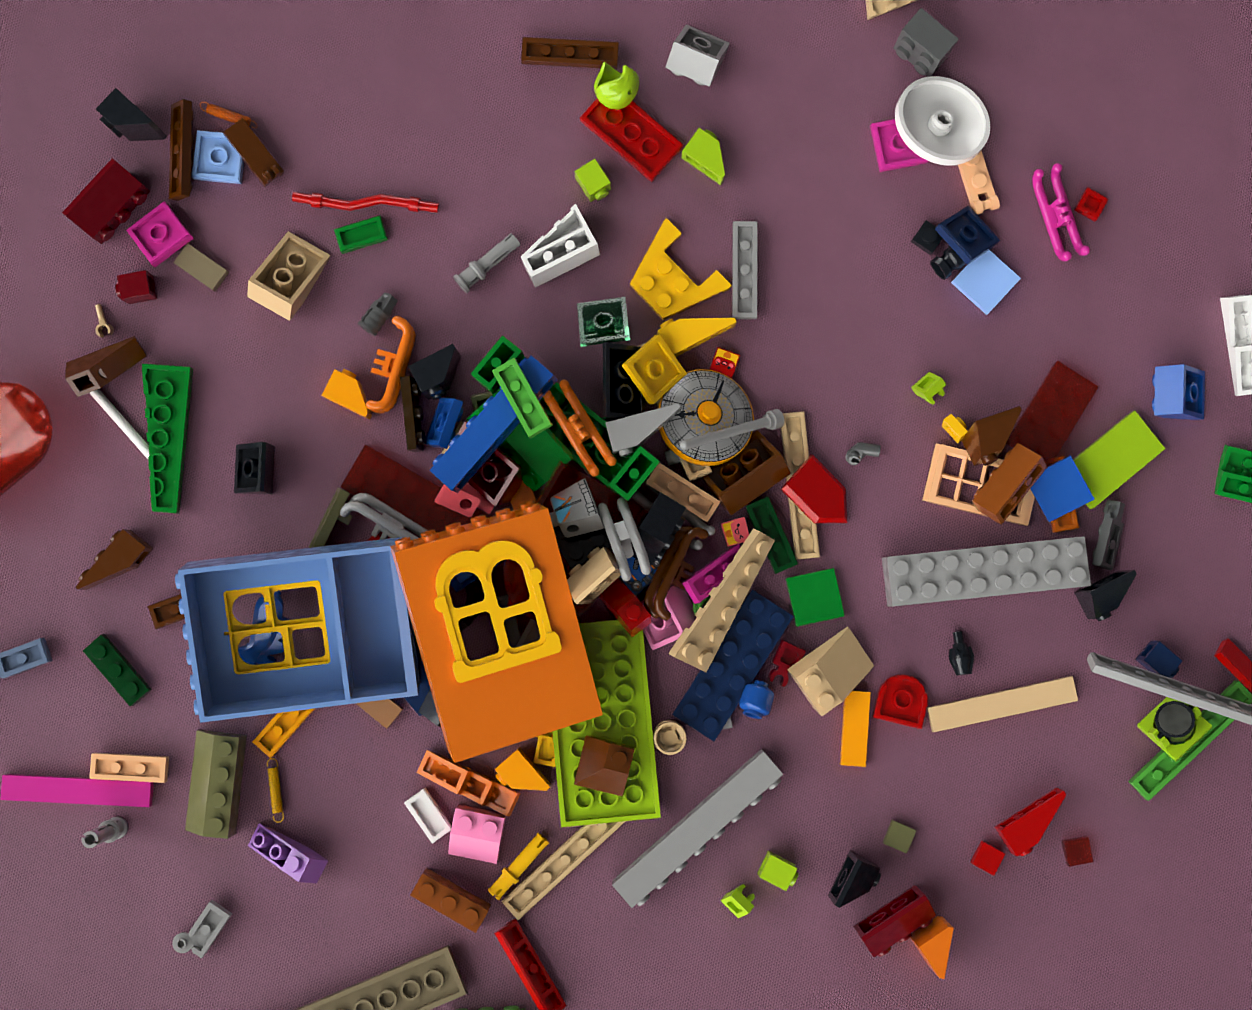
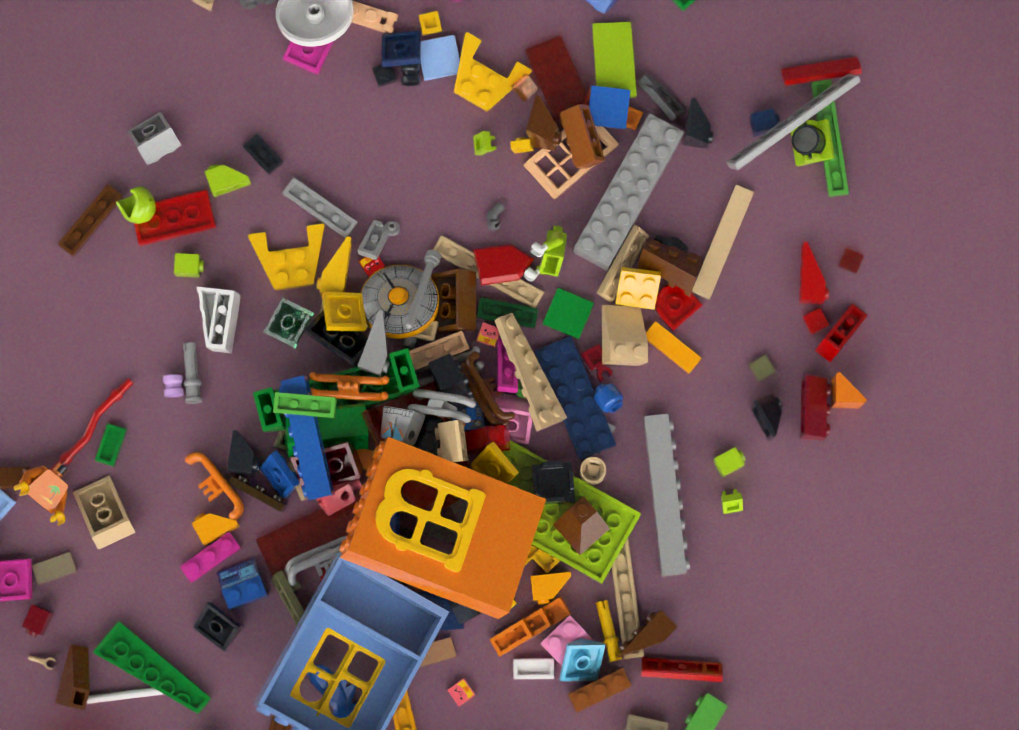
camera: 55 degrees left, 5 degrees down
(268, 201) = (46, 489): none -> orange torso
(310, 463) = (242, 584): none -> blue slope
(317, 412) = (210, 557): none -> dark pink plate
(354, 759) = (461, 692): none -> coral tile
(378, 314) = (173, 470): dark grey hinge -> none
(461, 253) = (173, 386): none -> lavender wheel
(468, 862) = (582, 660): none -> medium azure slope
(546, 915) = (654, 632): none -> reddish brown slope
(601, 635) = (494, 464): none -> yellow plate
(629, 706) = (554, 482): none -> black panel
(754, 348) = (377, 237): none -> light grey hinge
(758, 174) = (263, 154): none -> black plate
(863, 537) = (551, 252): none -> lime torso
(892, 651) = (637, 288): none -> yellow plate
(906, 617) = (625, 258): none -> tan tile
(941, 668) = (674, 264): none -> reddish brown wedge
(989, 339) = (479, 83): none -> yellow wing
(994, 894) = (841, 332): none -> red slope
(1015, 245) = (430, 23): none -> yellow plate
(1017, 388) = (524, 87): none -> clear orange plate

